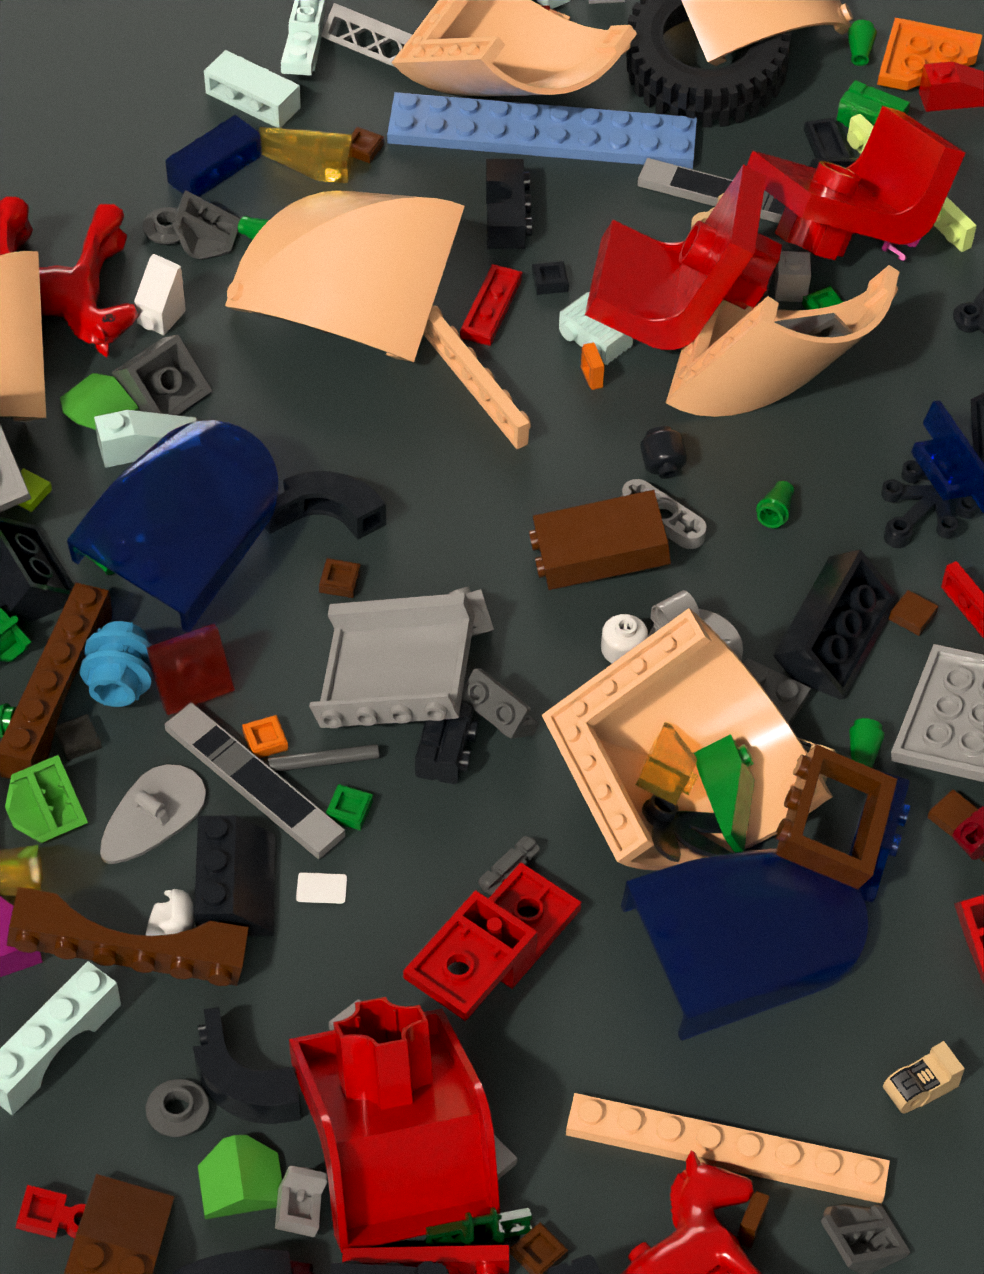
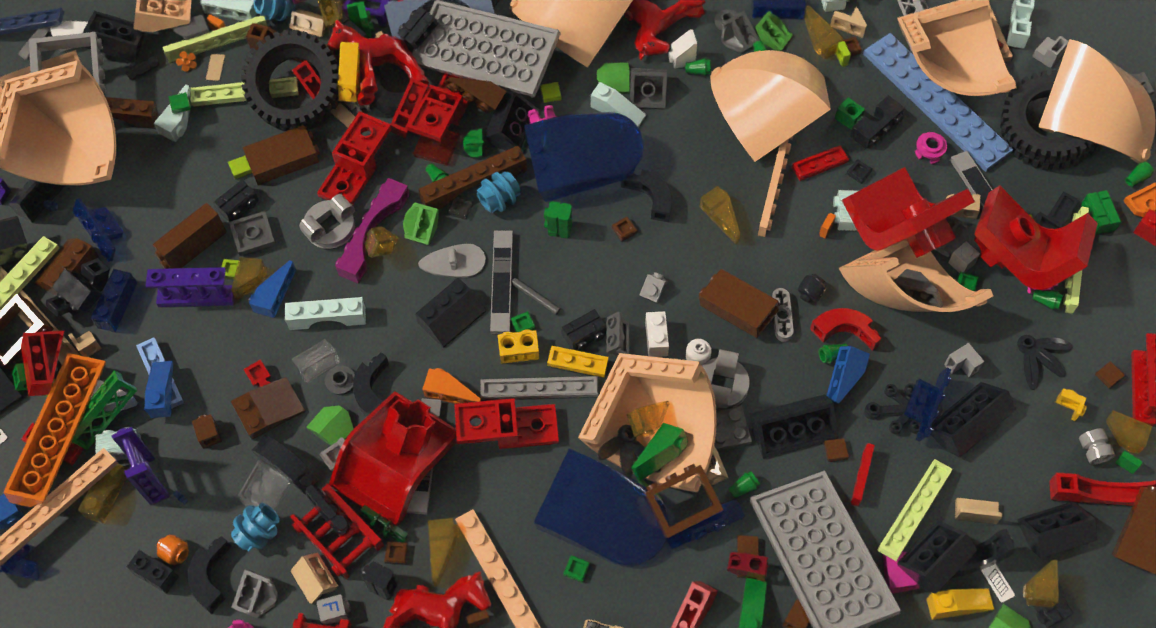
camera: 50 degrees right, 10 degrees up
(49, 925) = (408, 331): reddish brown arch -> none
(60, 524) = (534, 116): none -> dark pink piece
(109, 1111) = (316, 360): none -> clear slope
(172, 916) = (408, 309): white hair -> none
(190, 668) = (521, 216): clear red tile -> none
(200, 305) = (699, 67): none -> green cone
(248, 196) = (773, 32): none -> bright green slope
(248, 629) = (558, 219): none -> green brick
(265, 736) = (524, 268): orange tile -> none
(321, 888) = (479, 345): white sticker -> none
(336, 113) = (851, 24): none -> tan slope
(354, 973) = (445, 387): none -> orange slope
(367, 156) = (843, 53): none -> lime tile
(388, 840) = (519, 351): none -> yellow brick
(396, 661) = (598, 282): light grey panel -> none
(442, 453) = (719, 208): none -> clear yellow slope
(461, 873) = (539, 388): none -> light grey tile
(472, 217) = (845, 109): none -> green brick
(482, 786) = (577, 361): none -> yellow plate
(525, 849) = (566, 400): dark grey axle -> none
(544, 663) = (656, 334): none -> white brick
(587, 1174) = (442, 543): none -> clear yellow slope
(614, 184) = (933, 154): none -> dark pink piece
(754, 452) = (845, 321): none -> red arch
(791, 1038) = (576, 568): none -> green tile
(822, 509) = (847, 371): none -> blue slope
(932, 383) = (966, 359): none -> light grey piece
(933, 247) = (1048, 298): none -> green cone

